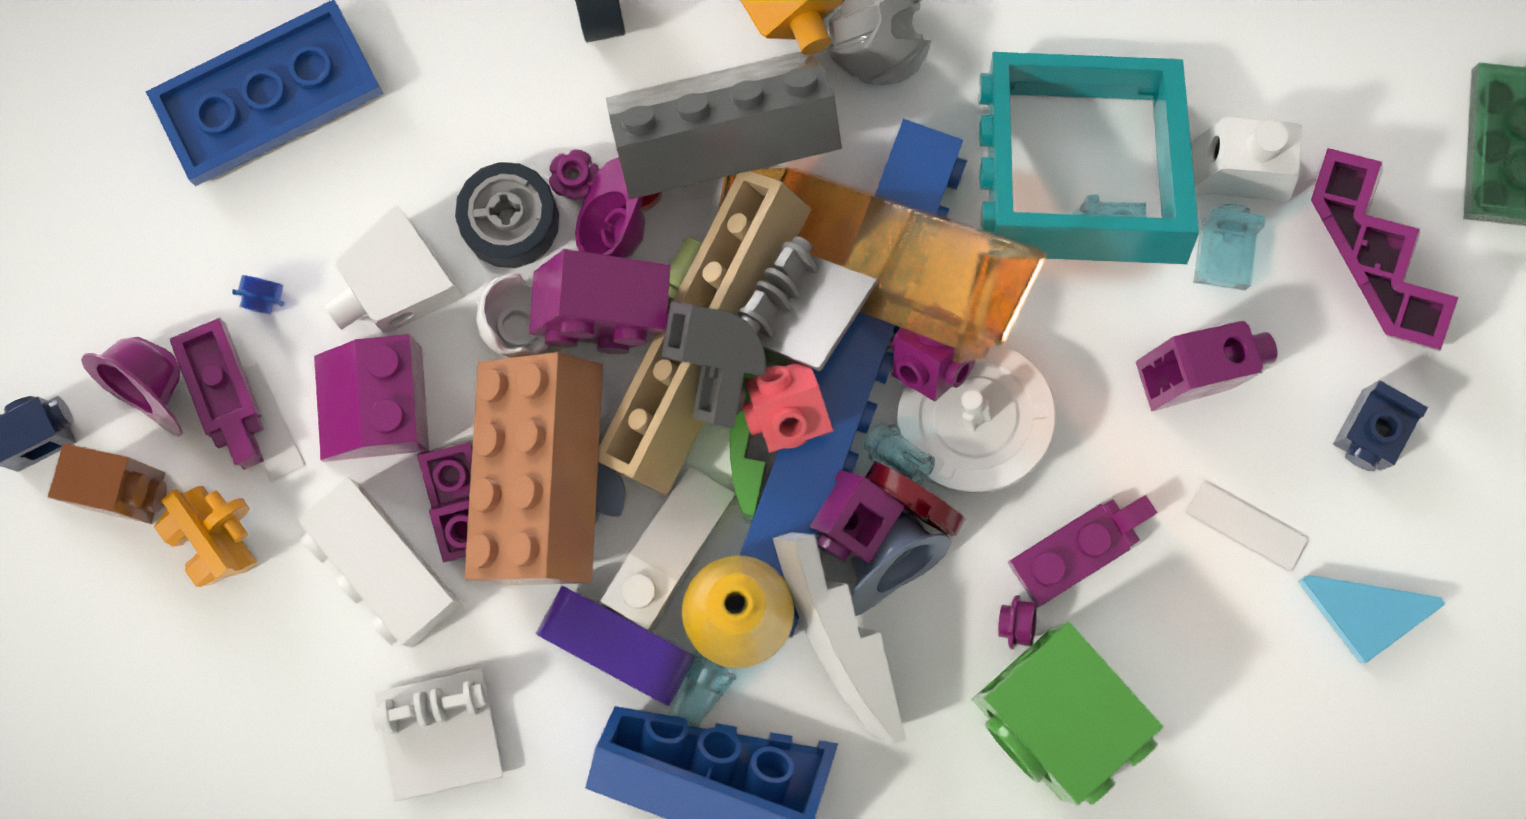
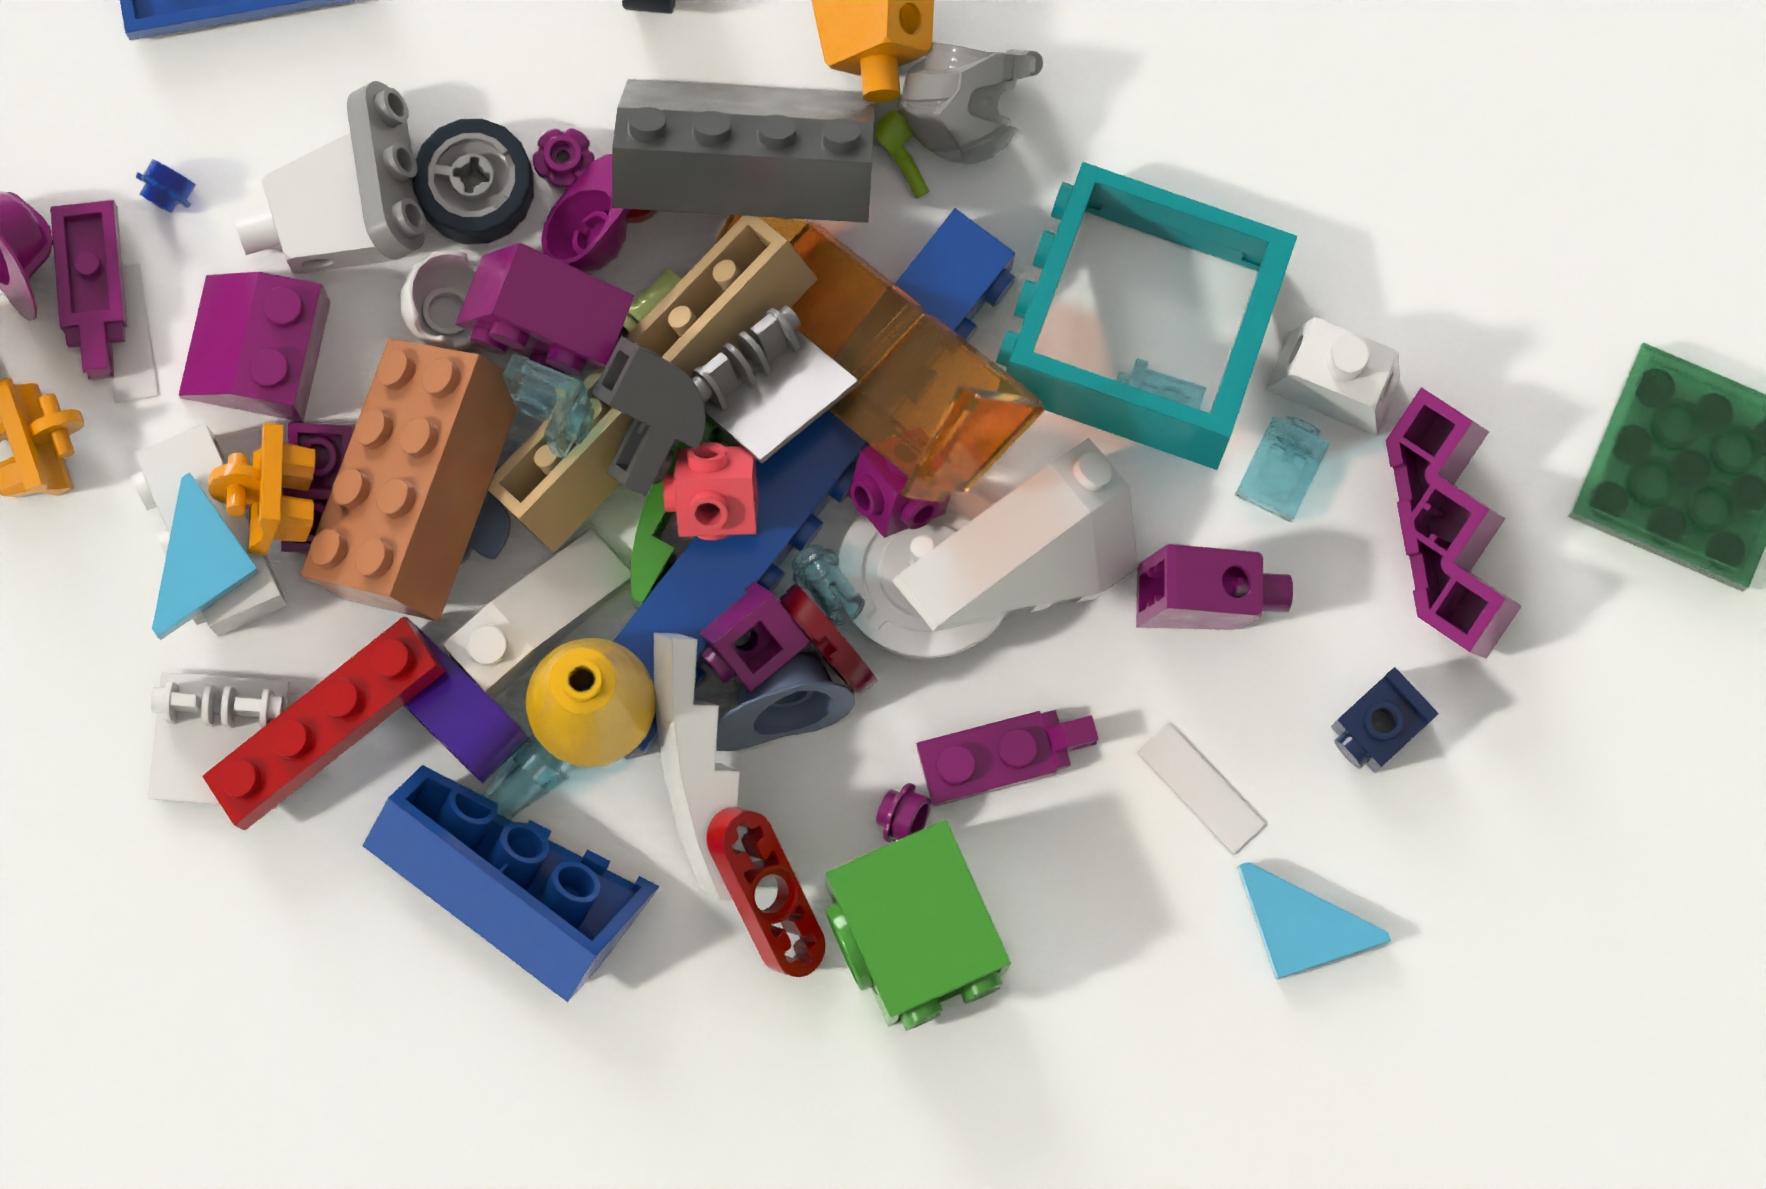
camera: 10 degrees right, 0 degrees up
(378, 594) = (200, 561): none -> medium azure tile
(409, 516) = (260, 487): none -> light orange hips
(433, 226) = (385, 169): none -> light grey plate
(522, 697) = (323, 723): none -> red plate
(621, 366) = (547, 392): none -> clear light blue bracket
(836, 75) = (892, 134): none -> lime hand
(910, 718) = (741, 880): none -> red beam
(1060, 374) = (1038, 545): none -> white wedge

